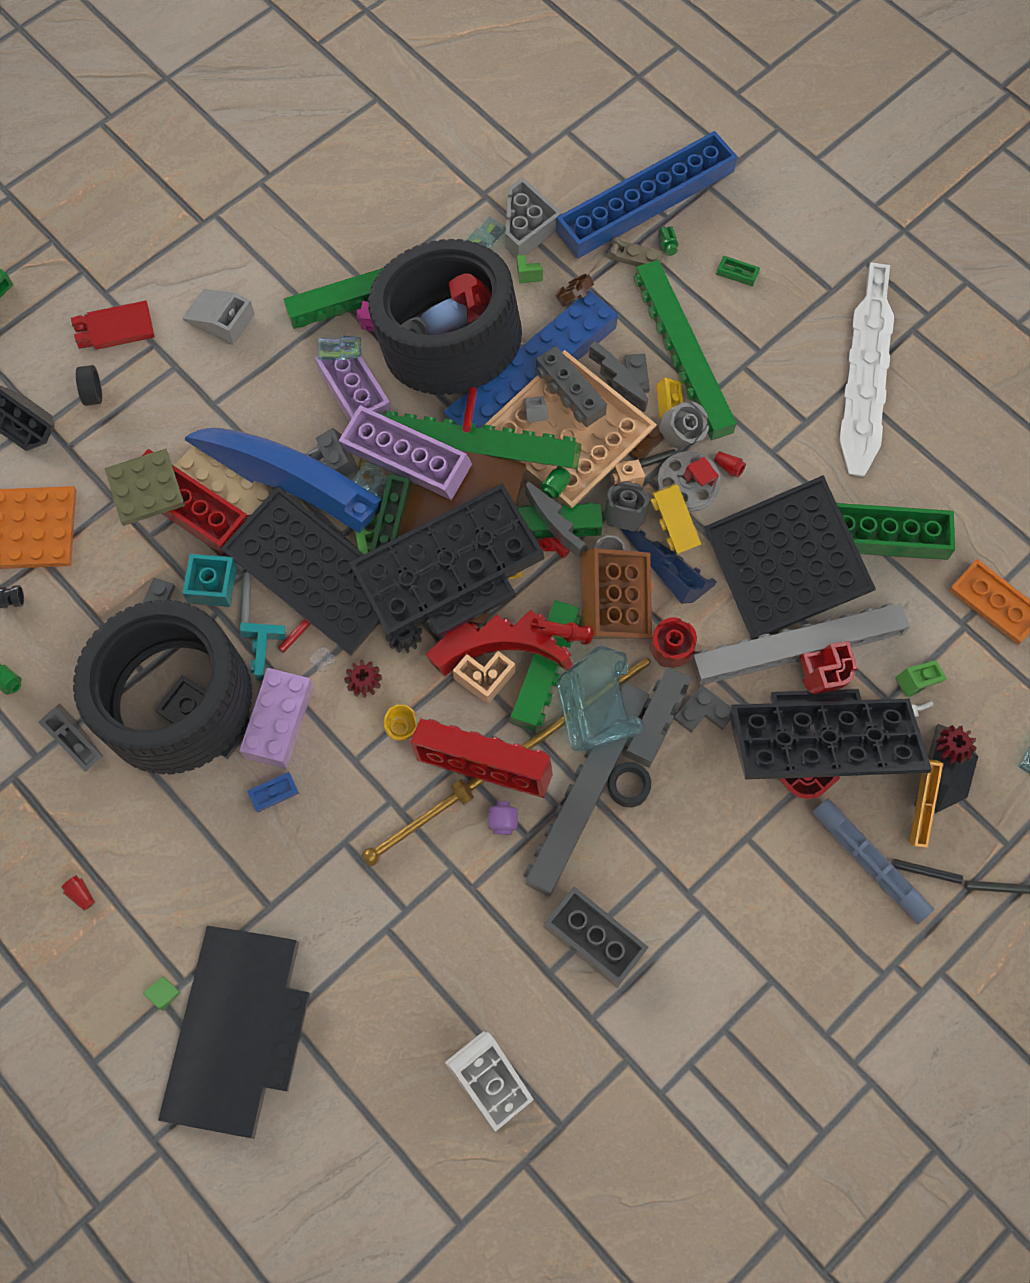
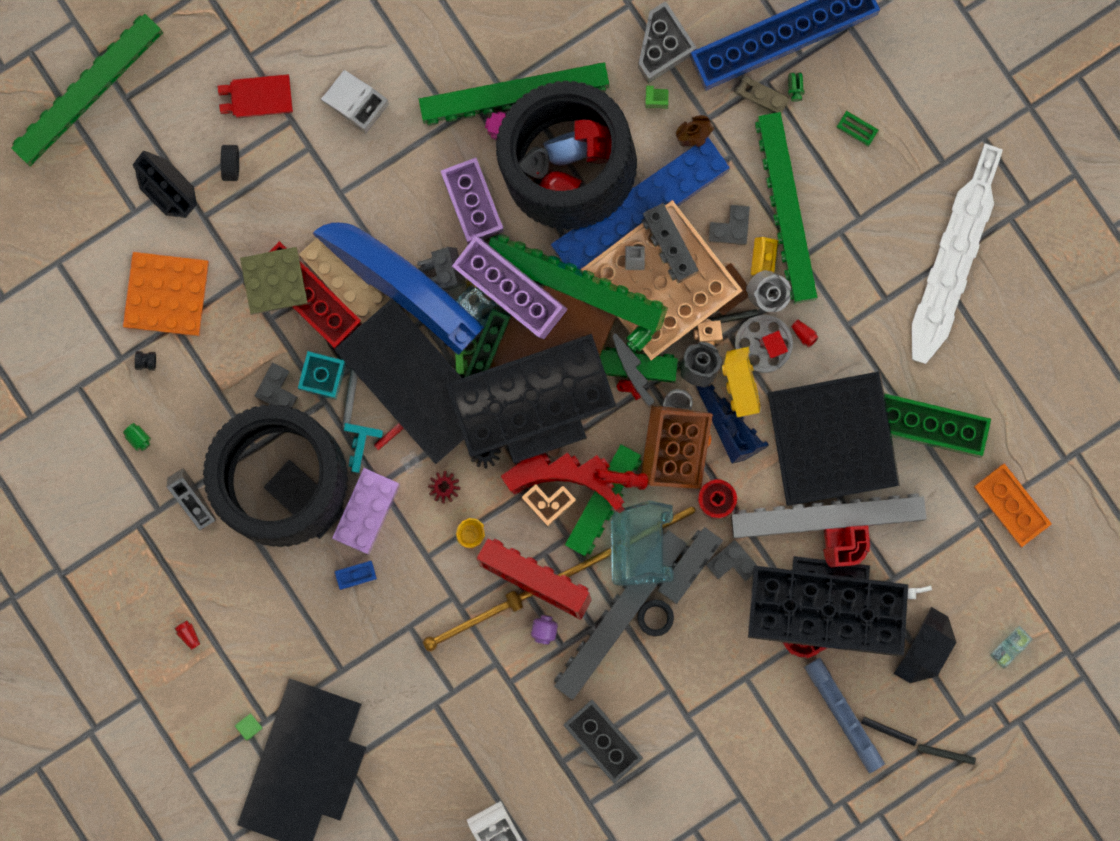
camera: 15 degrees right, 15 degrees up
(339, 349) = (464, 166): clear light blue slope -> none
(469, 409) = (574, 253): red bar -> none
(488, 233) = (621, 51): clear light blue slope -> none
(621, 378) = (721, 239): dark grey slope -> none
(919, 677) = (926, 564): bright green plate -> none
(925, 805) = (898, 678): light orange piece -> none
(948, 746) = (927, 637): dark red gear -> none

